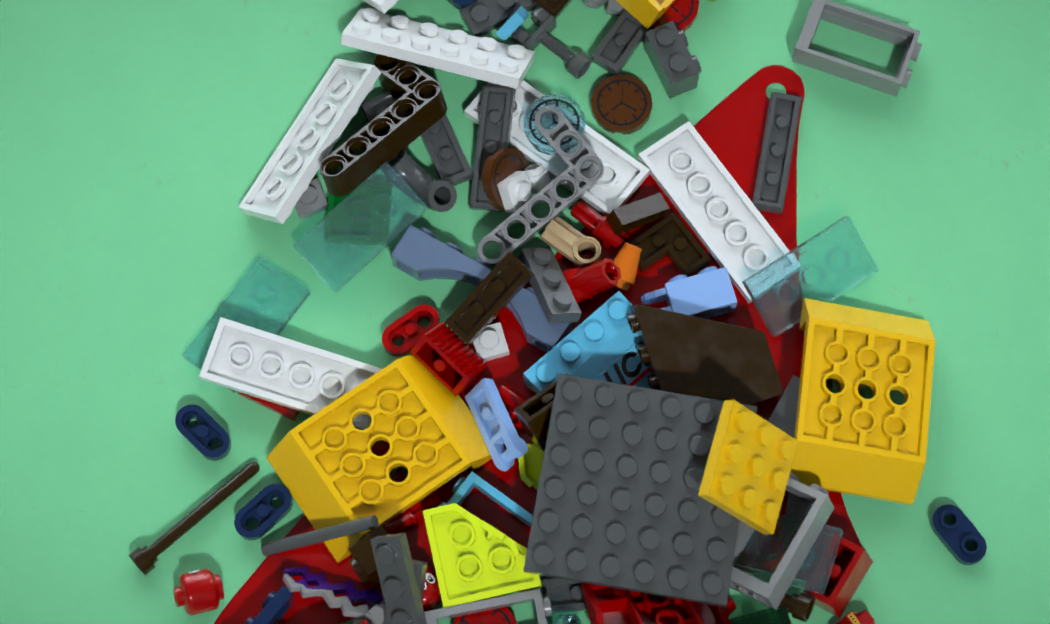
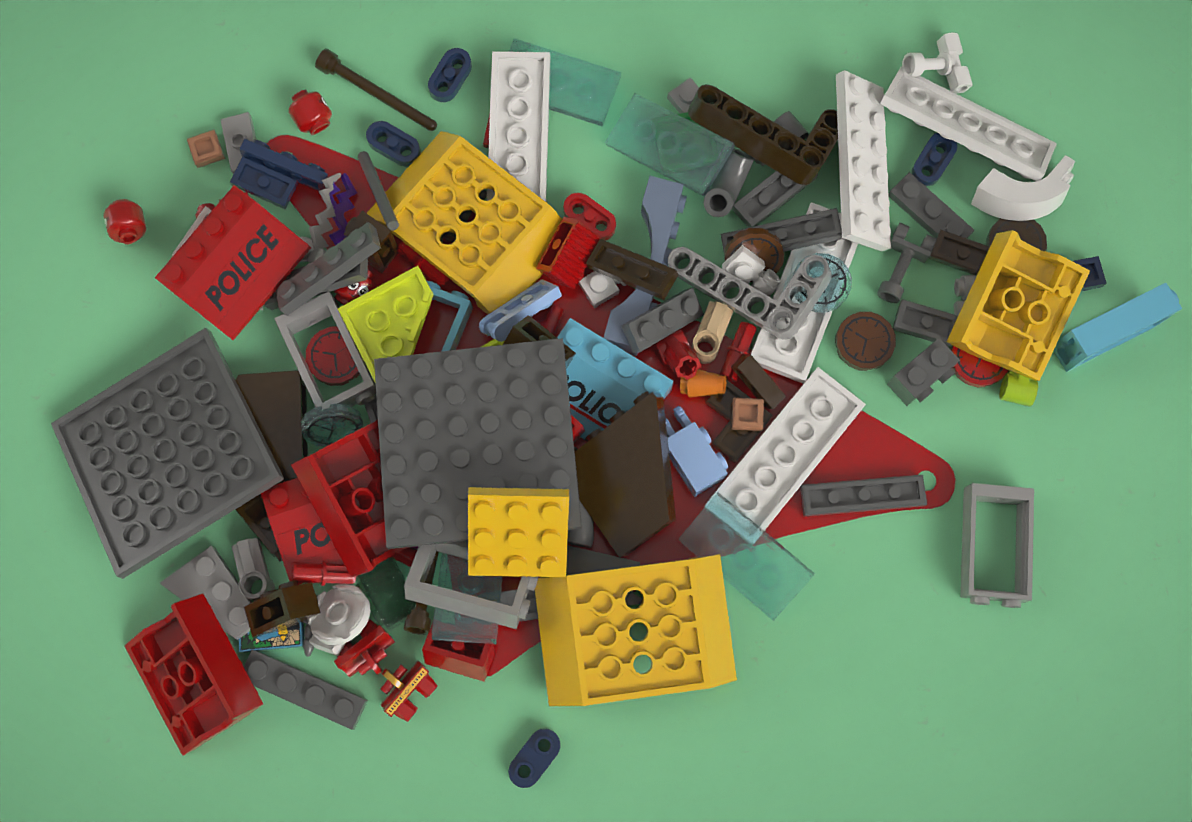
camera: 70 degrees right, 5 degrees up
(309, 140) = (739, 79): white plate -> none
(512, 23) = (910, 219): medium azure tile -> none
(668, 233) = (747, 414): none -> nougat tile

